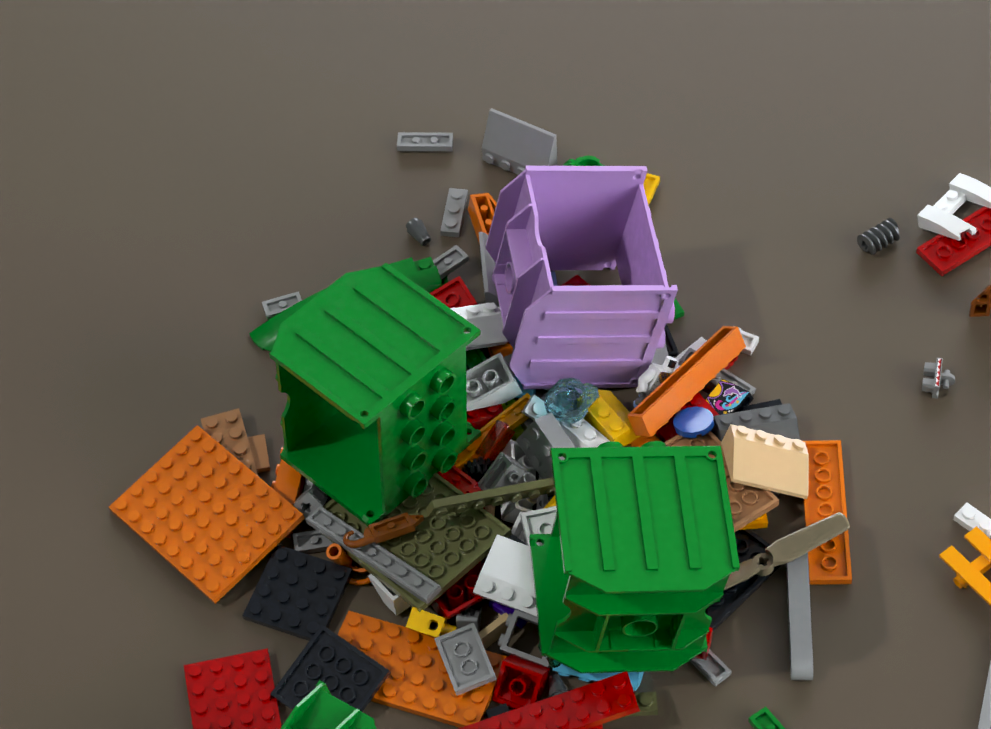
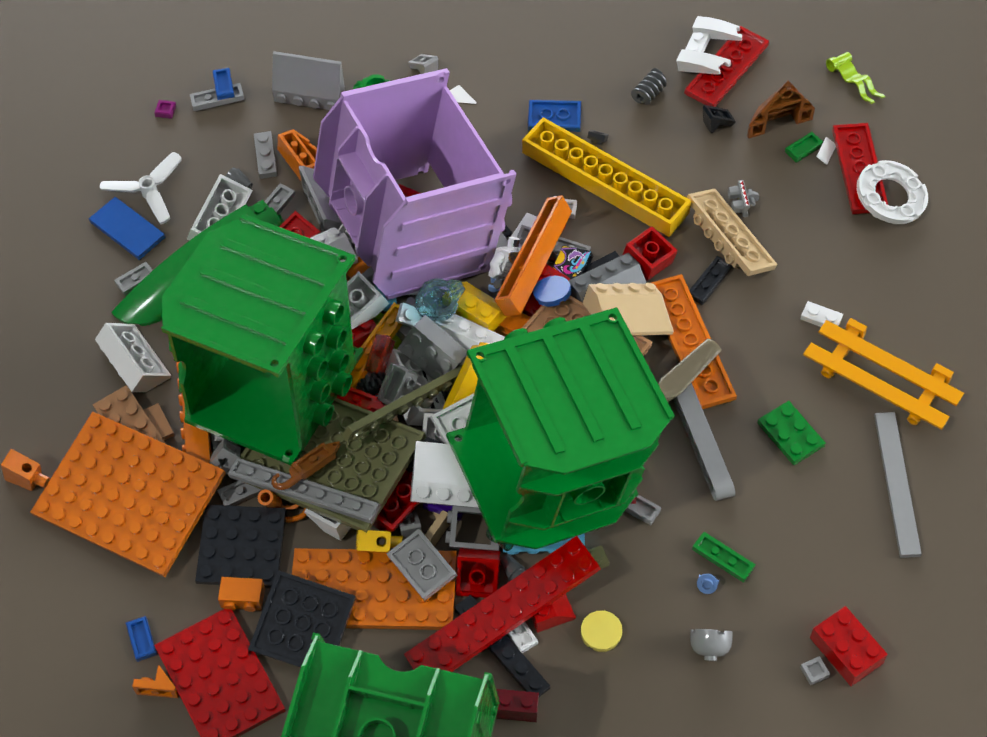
camera: 20 degrees left, 5 degrees up
(113, 465) = (23, 471): none -> orange torso
(173, 656) = (141, 638): none -> blue tile
(174, 706) = (160, 687): none -> orange slope
(254, 382) = (132, 356): none -> white slope
(282, 639) = (241, 593): none -> orange brick
(292, 253) = (127, 228): none -> blue tile
(325, 215) = (147, 186): none -> white piece
(369, 142) = (165, 109): none -> magenta tile
(394, 246) = (223, 199): none -> white slope
(435, 129) = (223, 83): none -> blue tile
(650, 158) = (424, 63): none -> light grey slope
(676, 198) = (461, 95): none -> white sticker
(768, 243) = (562, 113): none -> blue tile
(797, 320) = (606, 176): none -> yellow brick
(804, 276) = (597, 137): none -> black plate
(815, 410) = (651, 252): none -> red brick
(870, 454) = (710, 280): none -> black tile
(897, 633) = (791, 433): none -> green plate
(908, 410) = (729, 233): none -> tan plate
(941, 284) = (716, 116): none -> black slope

